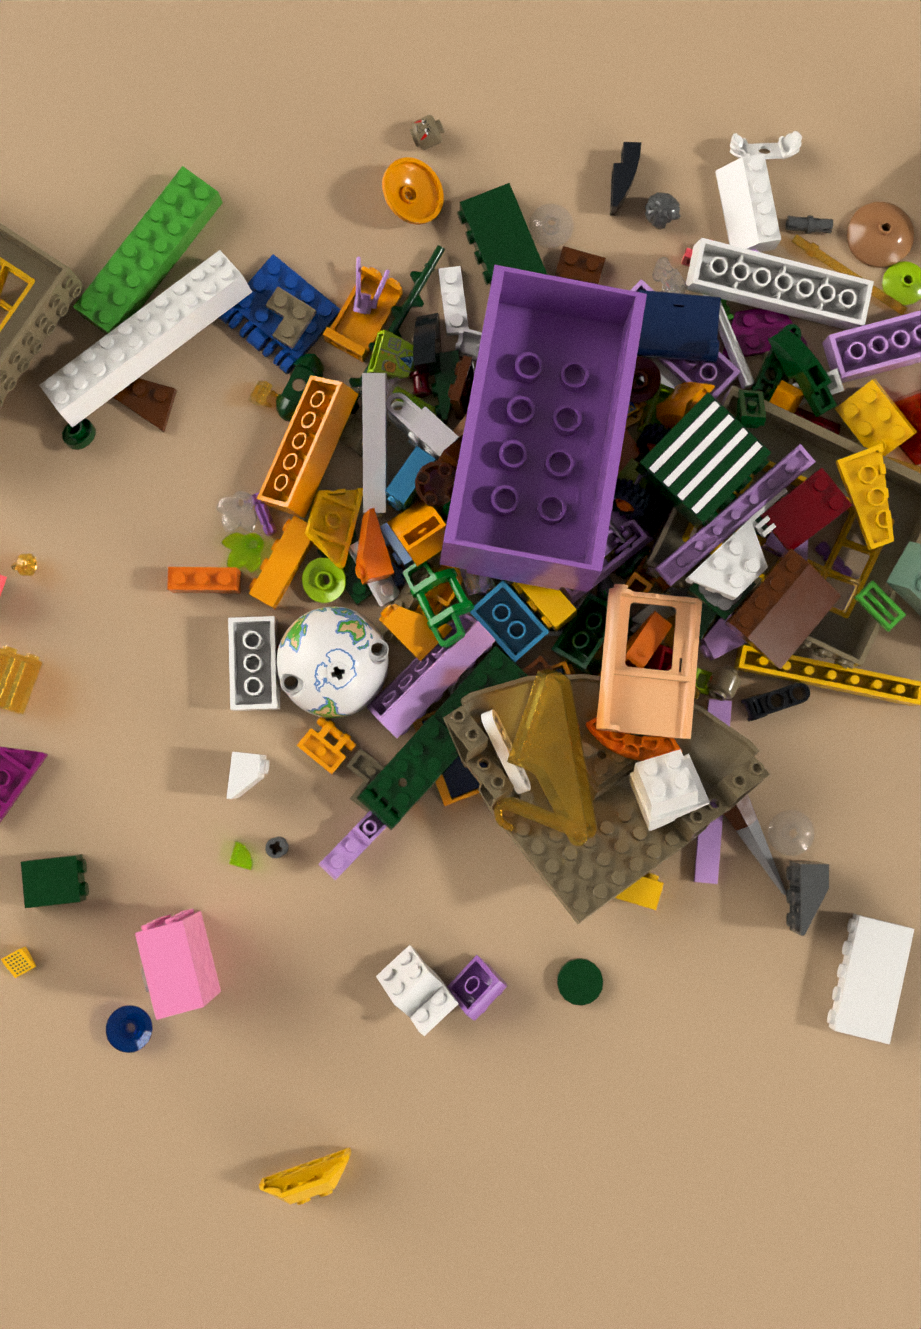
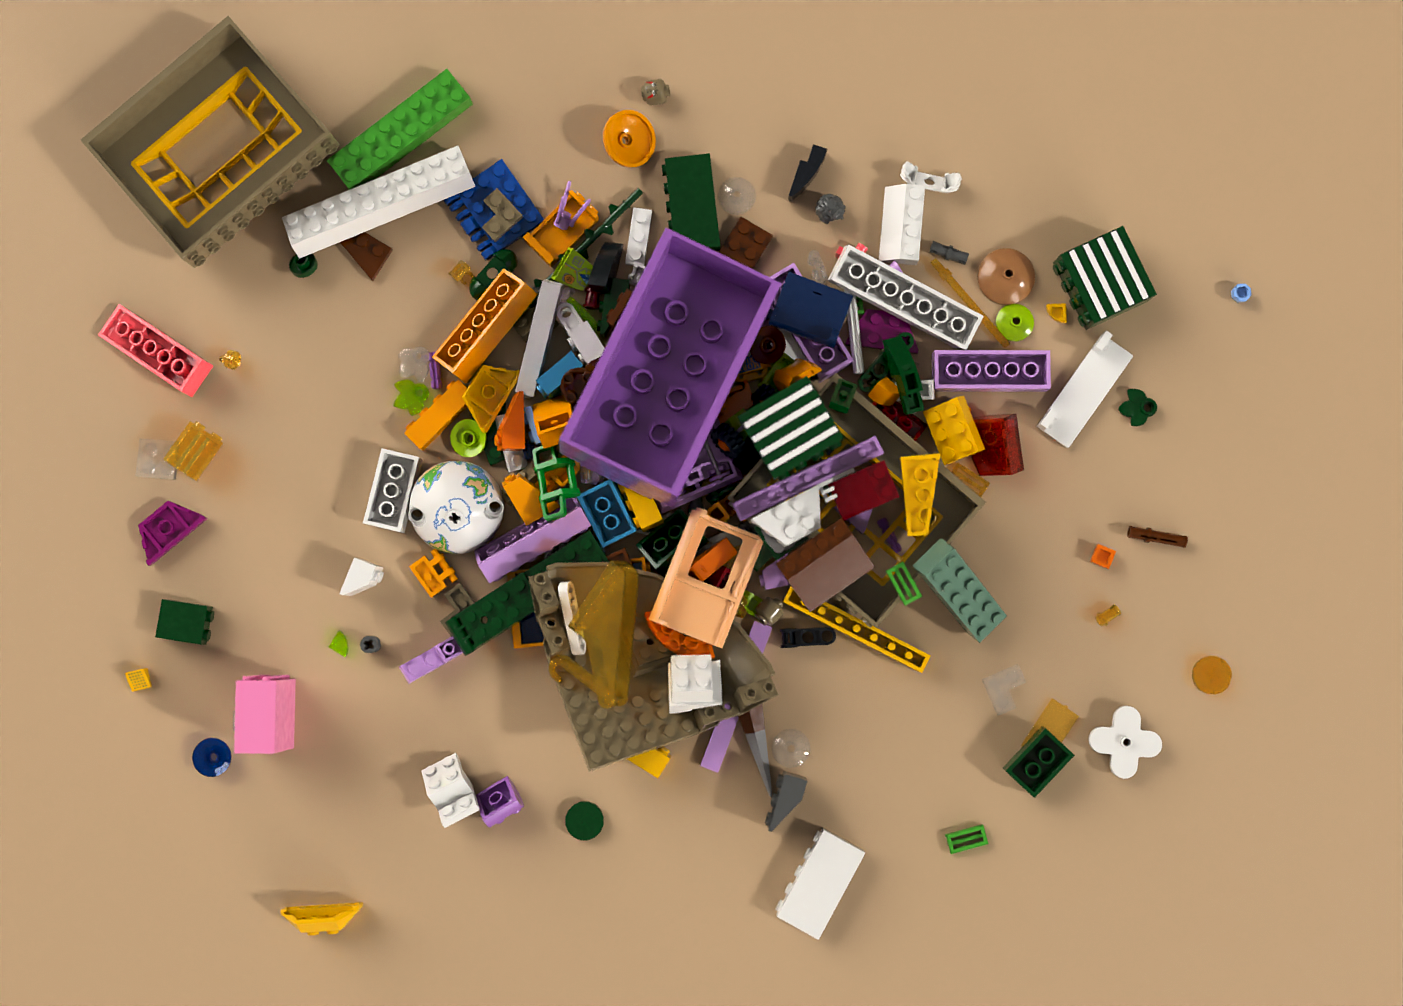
camera: 20 degrees right, 0 degrees up
(204, 580) = (371, 411): orange brick -> none

